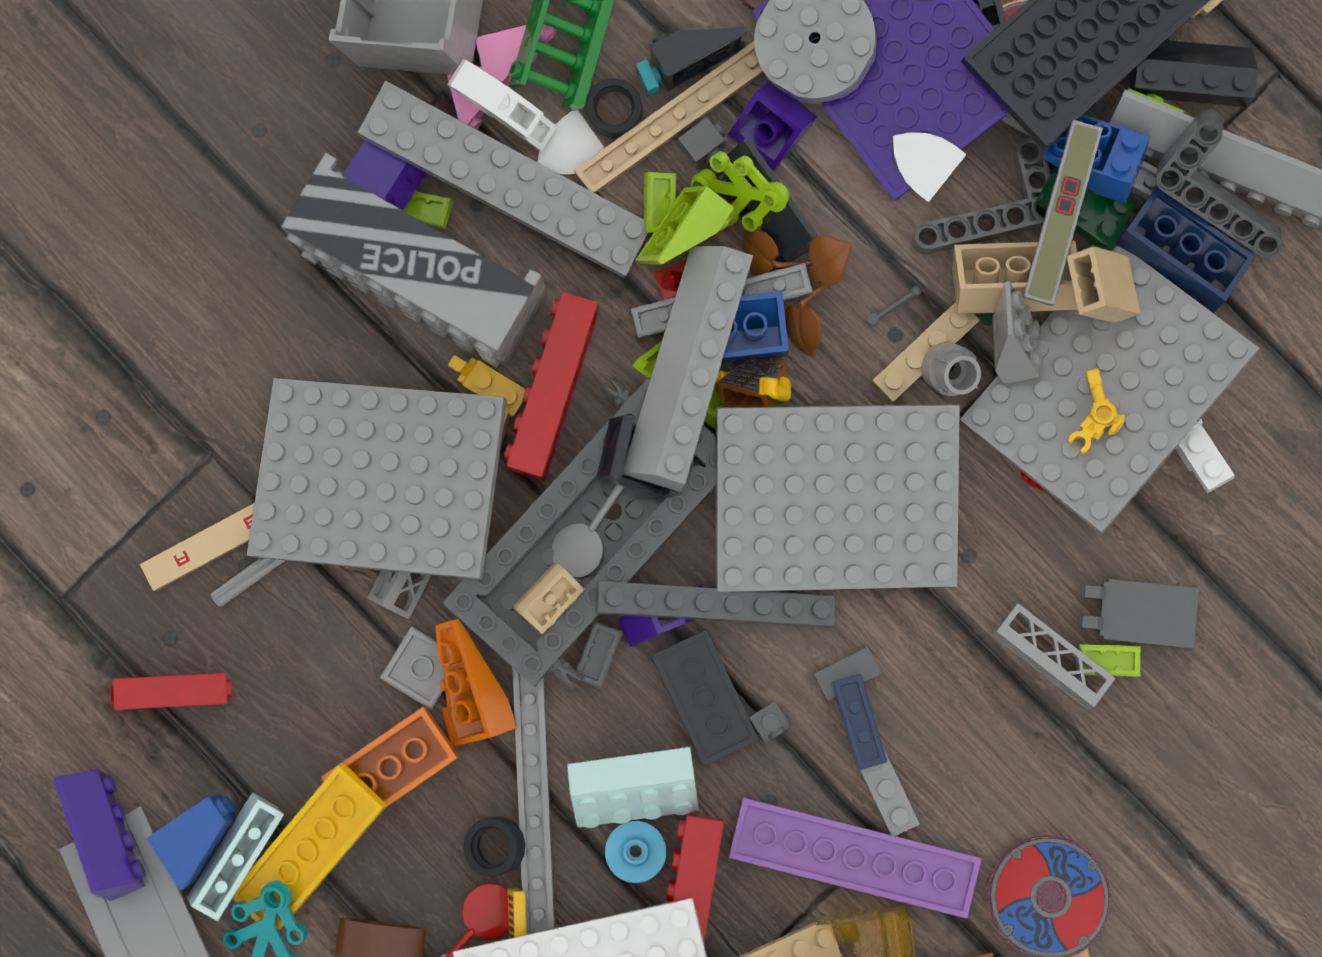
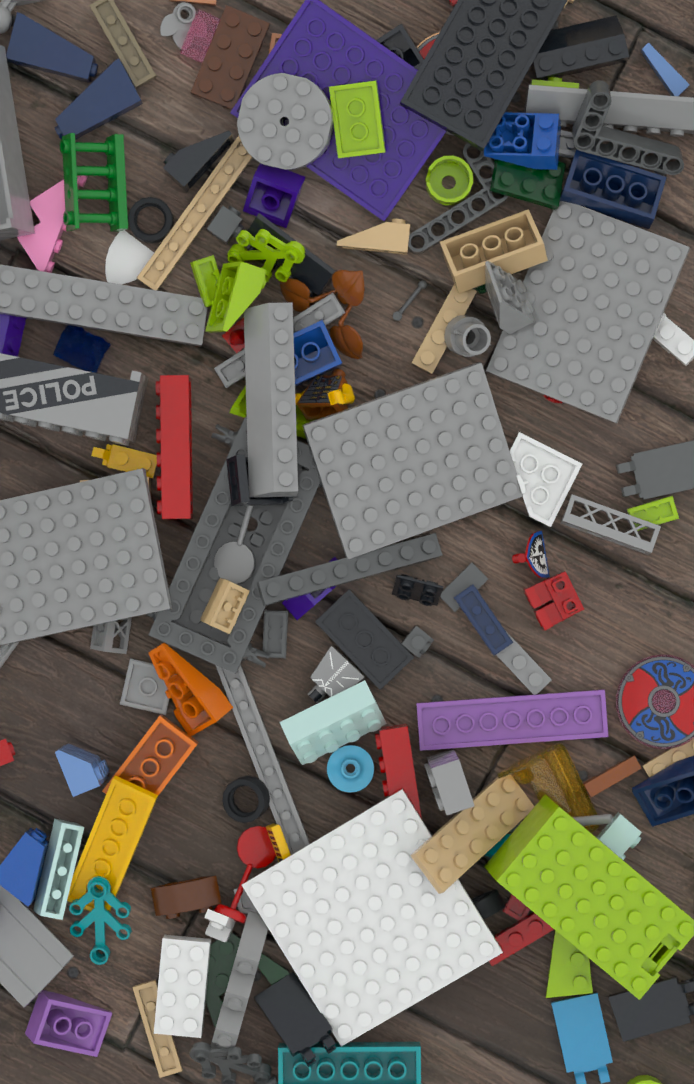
camera: 25 degrees left, 5 degrees up
(303, 740) = (81, 769): none -> medium blue slope
(430, 209) = (37, 344): lime plate -> none
(480, 230) = (81, 348): none -> clear blue bracket
(502, 104) = (67, 247): white slope -> none
(649, 78) = (169, 188): teal plate -> none
(652, 729) = (333, 675): none -> light grey torso
(753, 909) = (448, 782): none -> light grey brick
(790, 658) = (426, 592): none -> black hinge
(888, 220) = (384, 238): none -> tan slope
(903, 65) = (357, 119): none -> lime plate
(925, 161) = (398, 185): white sticker -> none
(947, 663) = (534, 555): none -> shield
(968, 726) = (564, 604): none -> red hips
(988, 571) = (542, 477): none -> white plate
(994, 160) = (453, 167): none -> lime piece
(1062, 213) = (511, 195): olive tile -> none
(1101, 416) = (588, 338): yellow piece -> none
(1103, 284) = (559, 238): tan brick -> none
(1289, 129) = (666, 73): none -> medium blue piece

